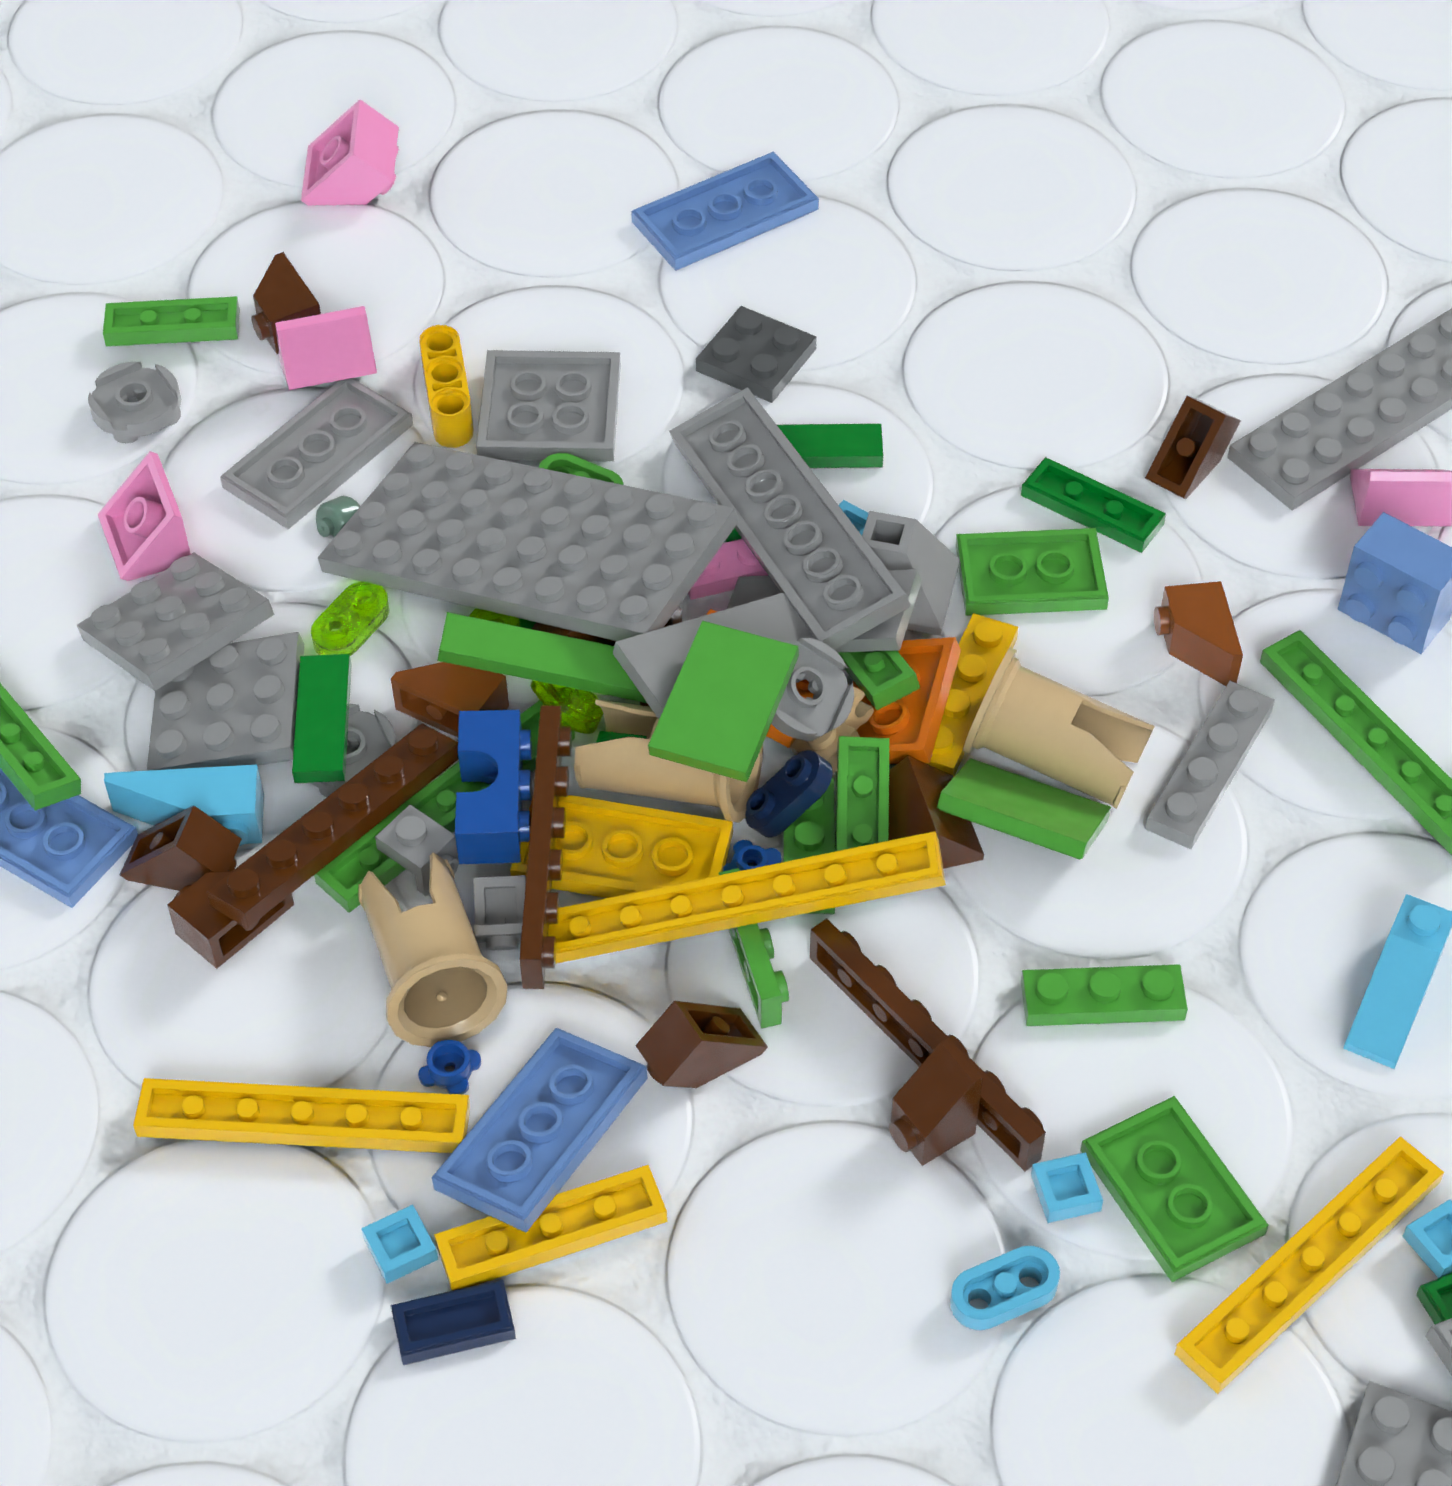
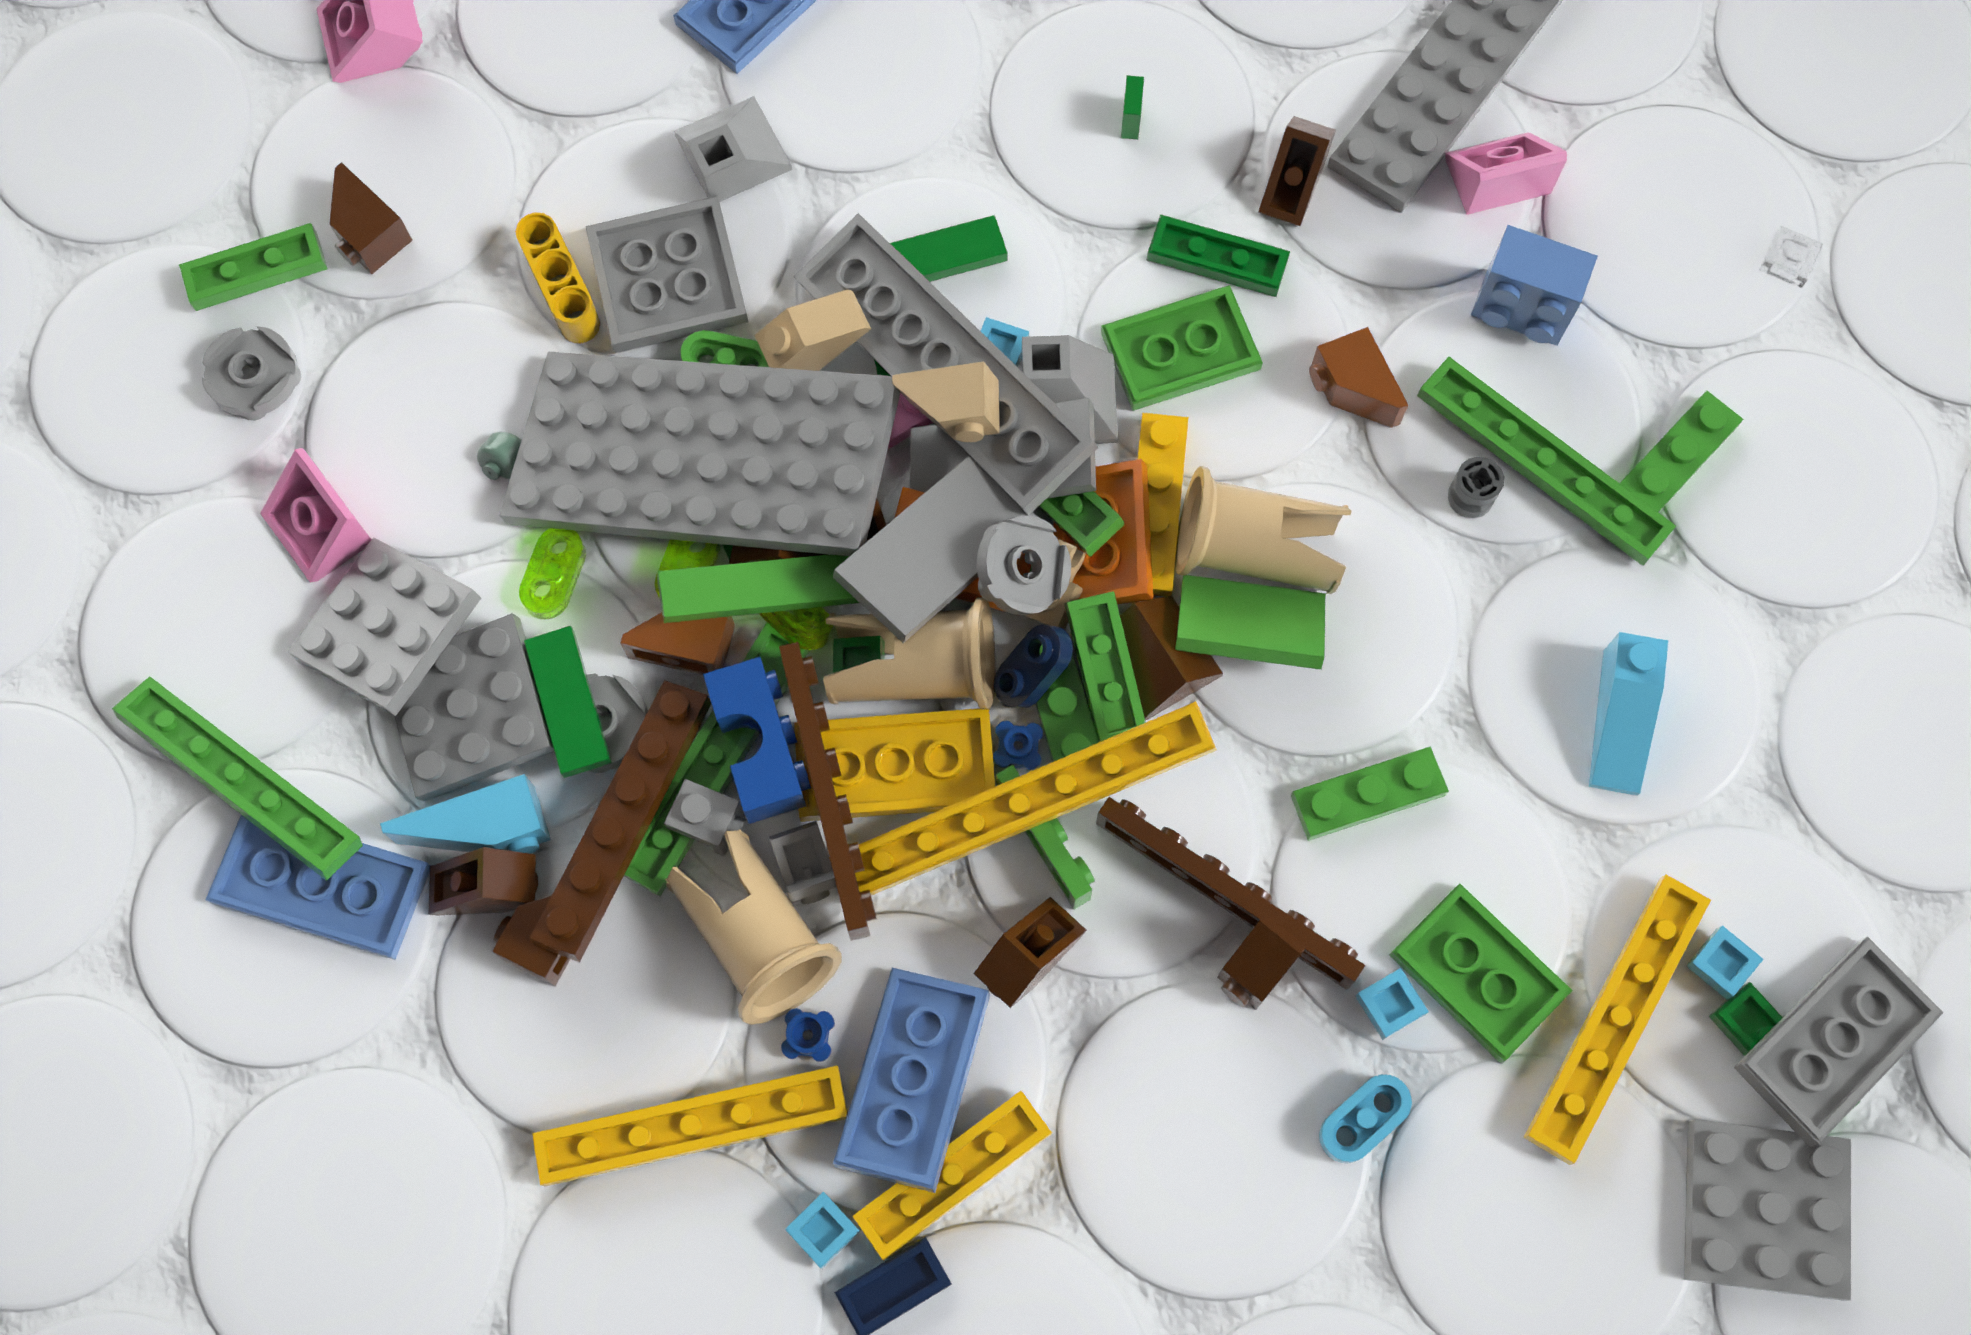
camera: 15 degrees left, 20 degrees up
(316, 451) = (453, 383): light grey tile -> none
(325, 348) = (427, 273): bright pink slope -> none
(648, 323) = (733, 150): none -> light grey slope
(672, 466) = (813, 332): none -> tan slope
(724, 701) = (959, 613): bright green tile -> none
(756, 353) = (848, 158): dark grey plate -> none
(784, 536) = (955, 398): none -> tan slope
(1044, 365) = (1132, 107): none -> green tile
(1209, 765) = (1400, 520): light grey plate -> none
(1295, 747) = (1470, 497): none -> dark grey wheel

